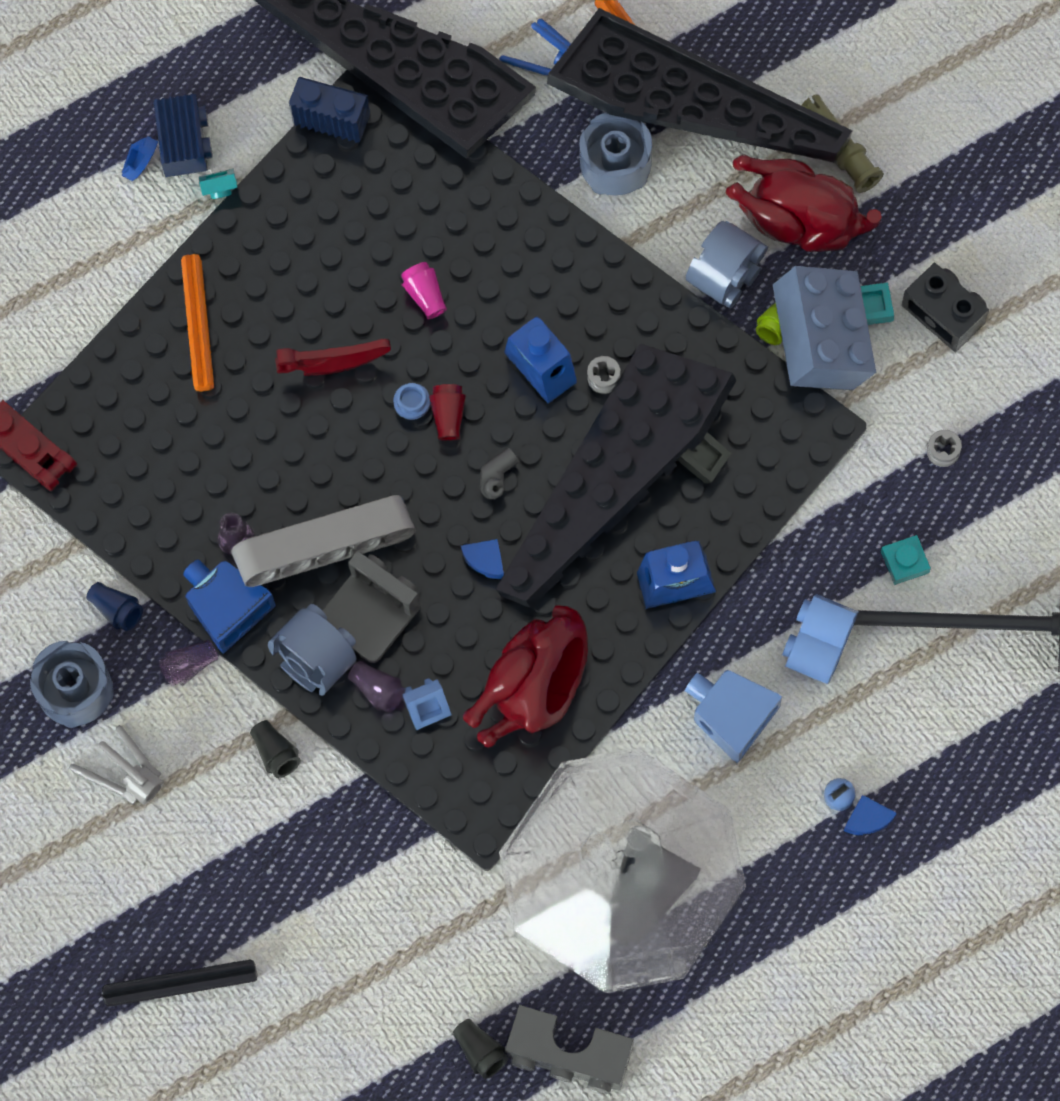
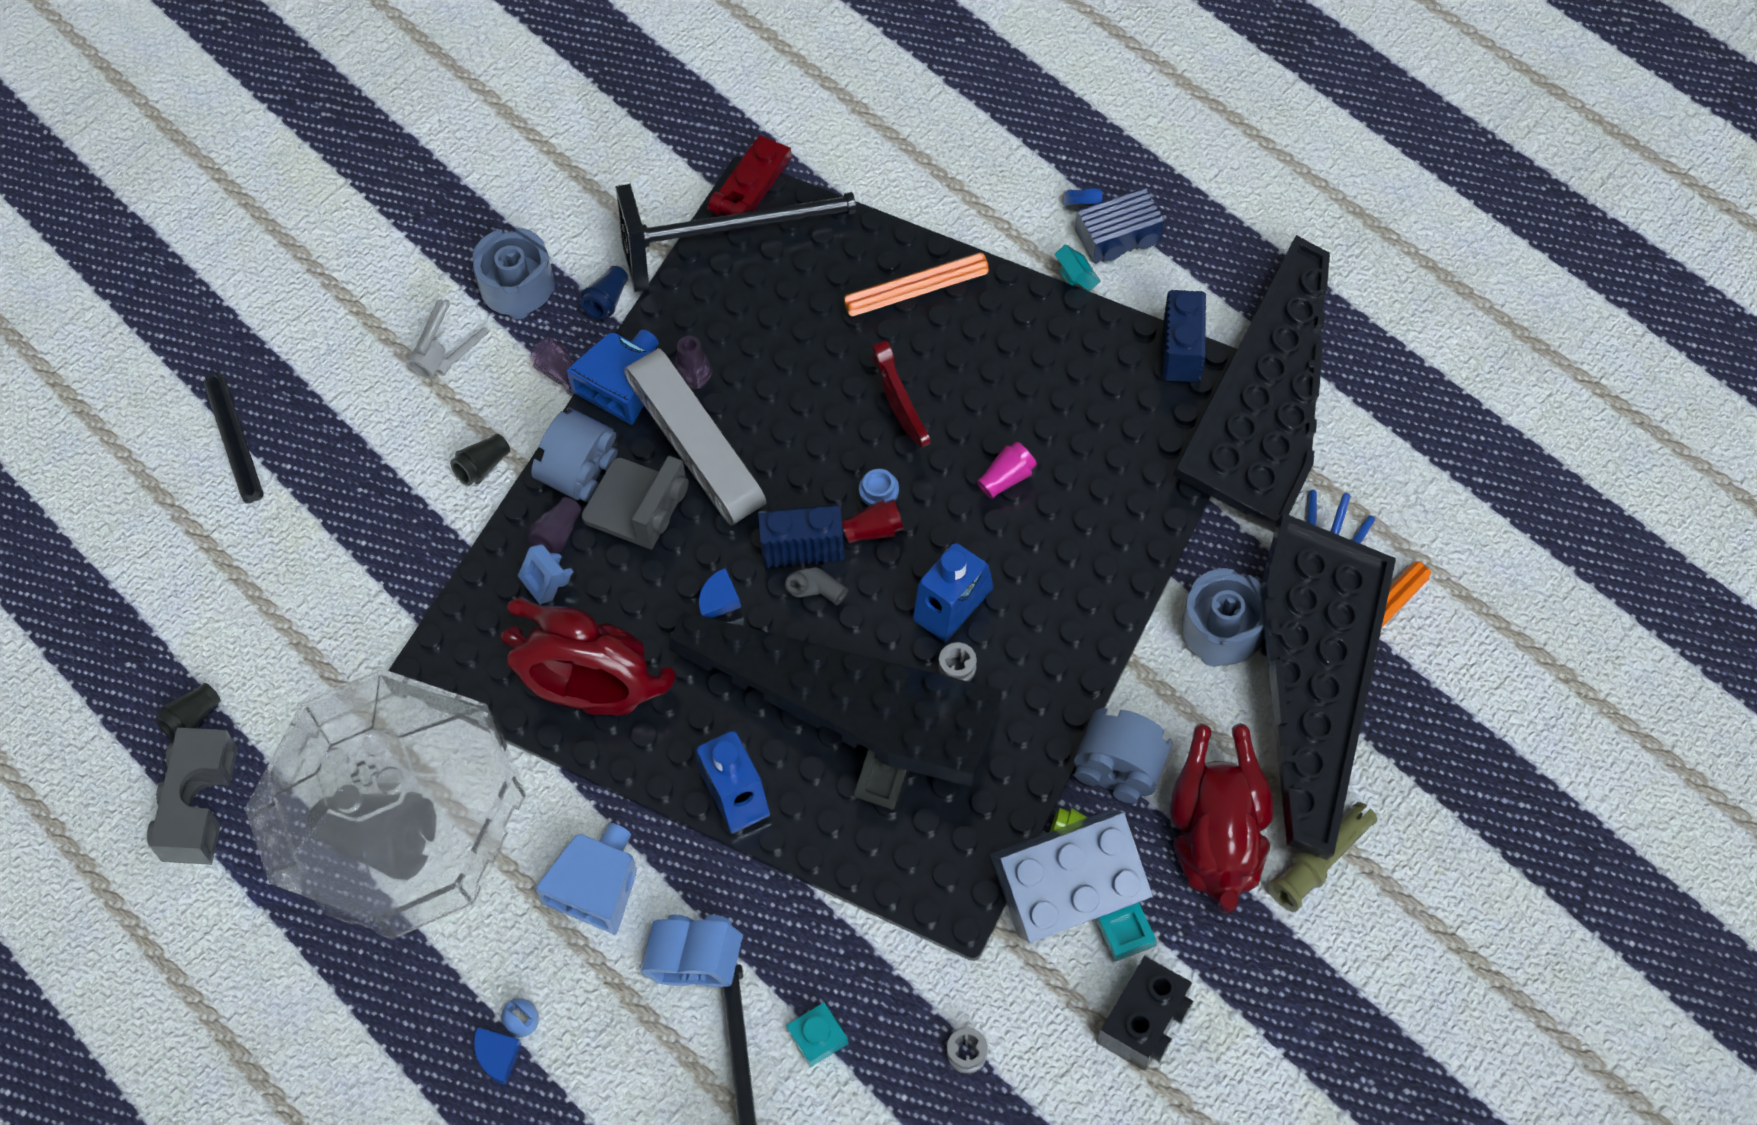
camera: 75 degrees right, 10 degrees down
(78, 556) = (637, 236): none -> black tile
(448, 472) = (801, 535): none -> dark blue brick

